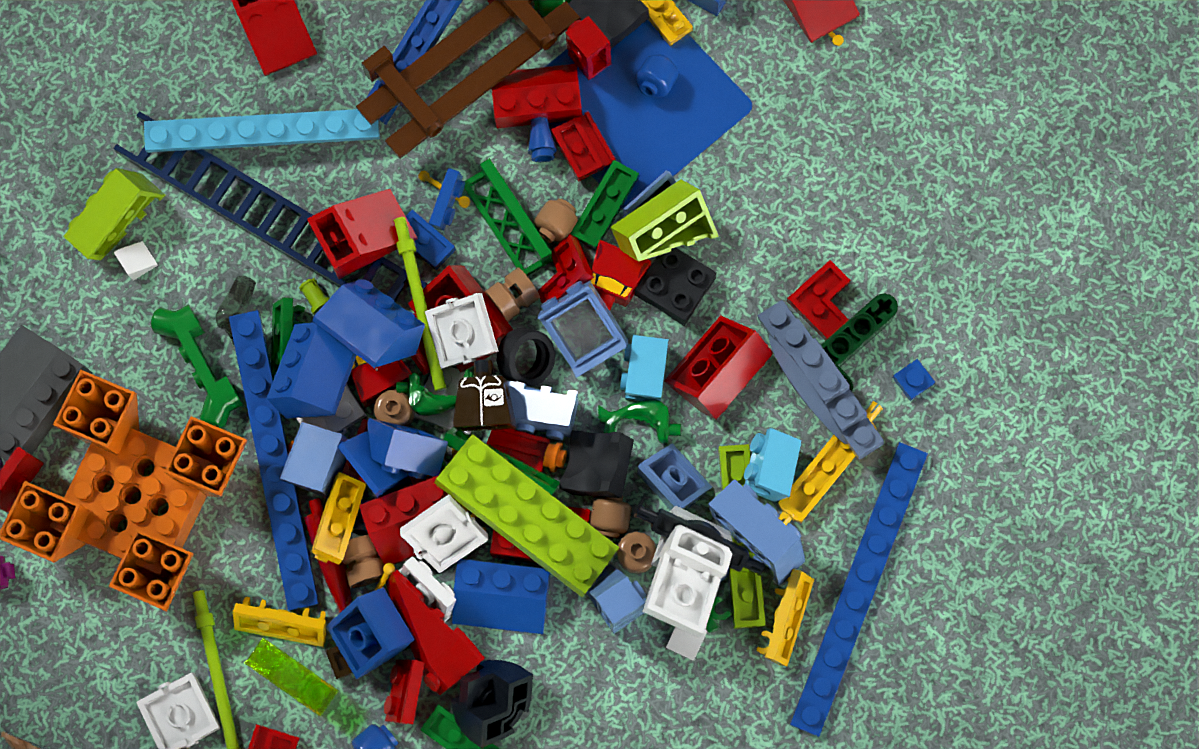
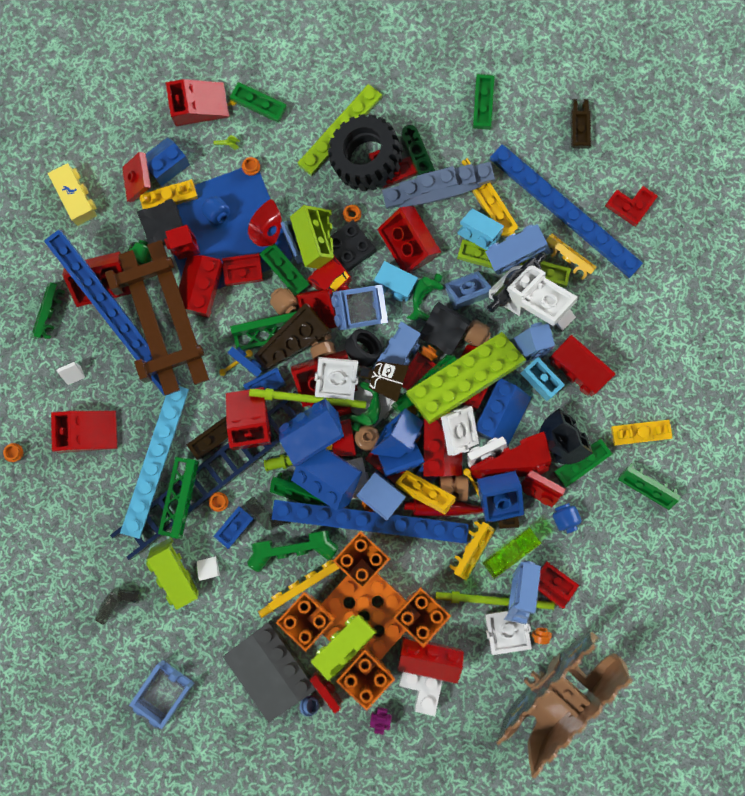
camera: 70 degrees left, 5 degrees up
(52, 150) = (112, 601): none -> clear smoke arm
(66, 621) = (427, 691): none -> white brick
(75, 474) = (343, 647): none -> lime wedge
(99, 612) = (431, 661): none -> red slope
(143, 388) = (296, 588): none -> yellow plate
(204, 272) = (234, 527): none -> blue plate
(221, 187) = (183, 498): none -> green fence
(234, 239) = (218, 502): none -> orange plate
(236, 711) = (523, 592): none -> medium blue window
(314, 190) = (209, 439): none -> dark brown plate
(504, 251) = (295, 335): none -> dark brown wing
(541, 141) = (230, 293): blue cone -> none
(572, 636) = (542, 379): none -> medium azure brick
(611, 688) = (581, 366): none -> red slope
(636, 552) = (505, 323): medium nougat head -> none
(668, 146) = (264, 218): none -> red piece
(729, 261) = (352, 208): none -> orange plate
(745, 100) = (251, 166): none -> orange plate
(770, 57) = (231, 140): none -> lime hand
(824, 219) = (354, 134): none -> black tyre
(848, 74) = (258, 102): none -> green plate
(855, 206) = (319, 151): none -> lime plate
(899, 690) = (631, 209): none -> red plate
(913, 379) = (455, 136): blue plate -> none
(985, 401) = (483, 102): none -> green plate
(1007, 564) = (580, 125): none -> dark brown hinge

